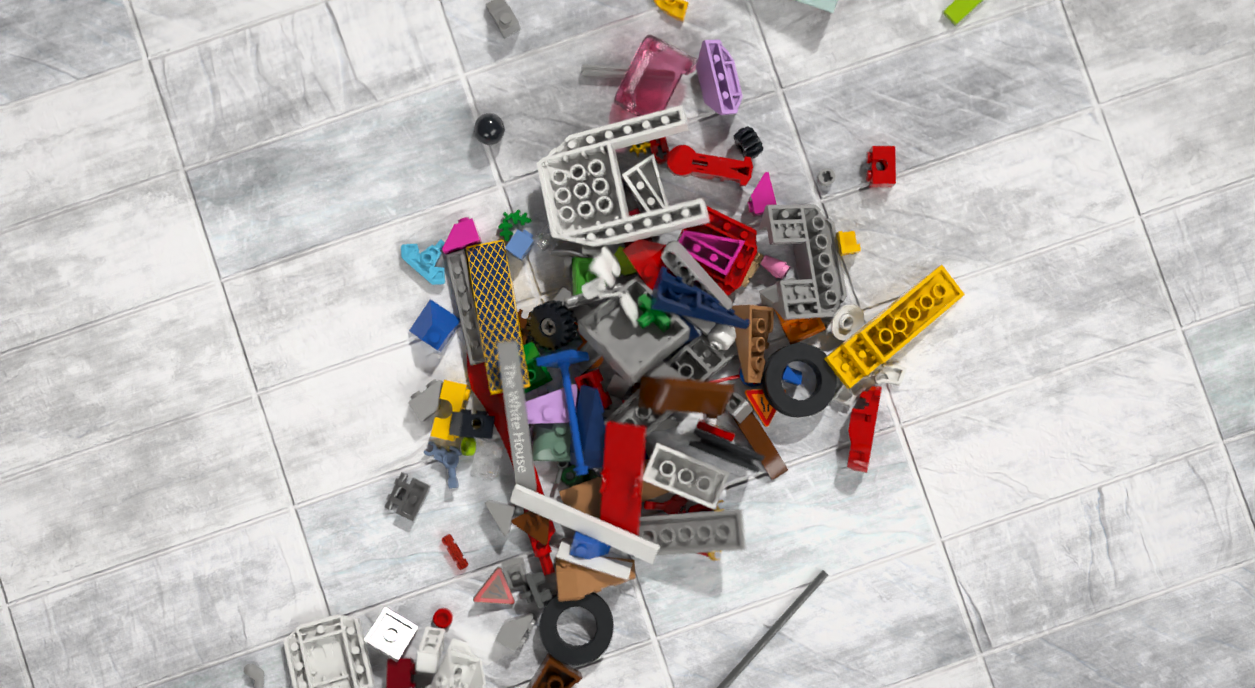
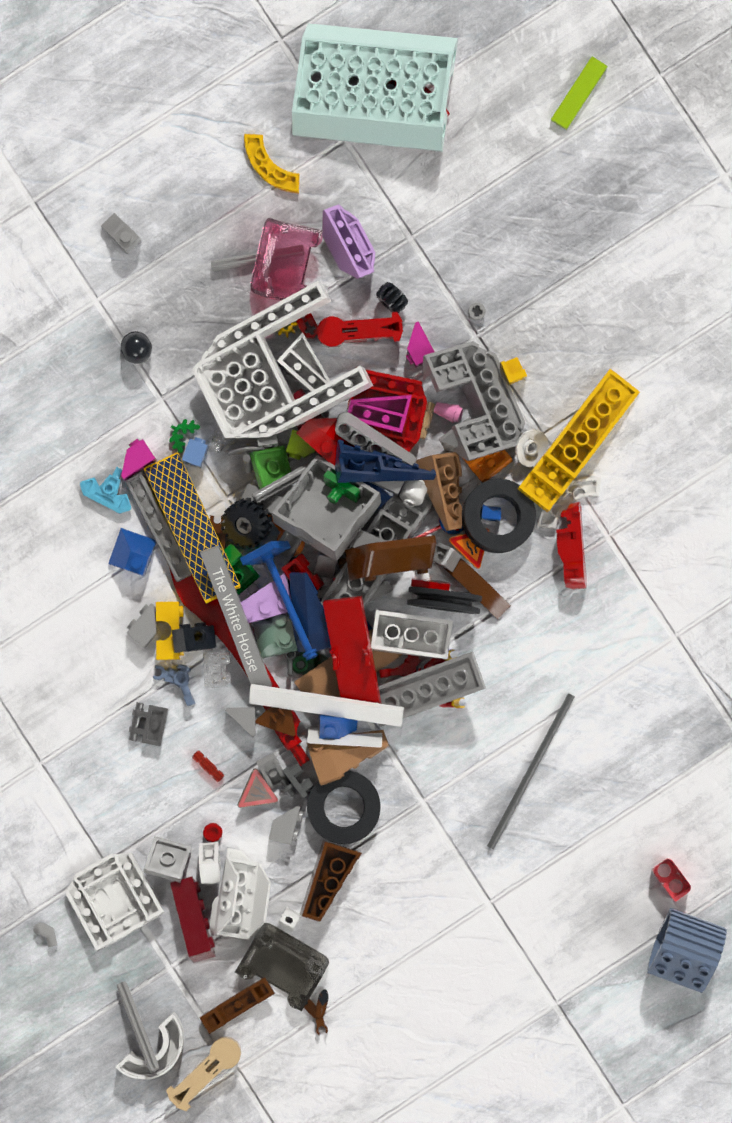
camera: 10 degrees left, 0 degrees up
(468, 446) = (195, 660): lime tile -> none
(604, 266) = (283, 454): white plant -> none
(887, 156) = (527, 276): red brick -> none

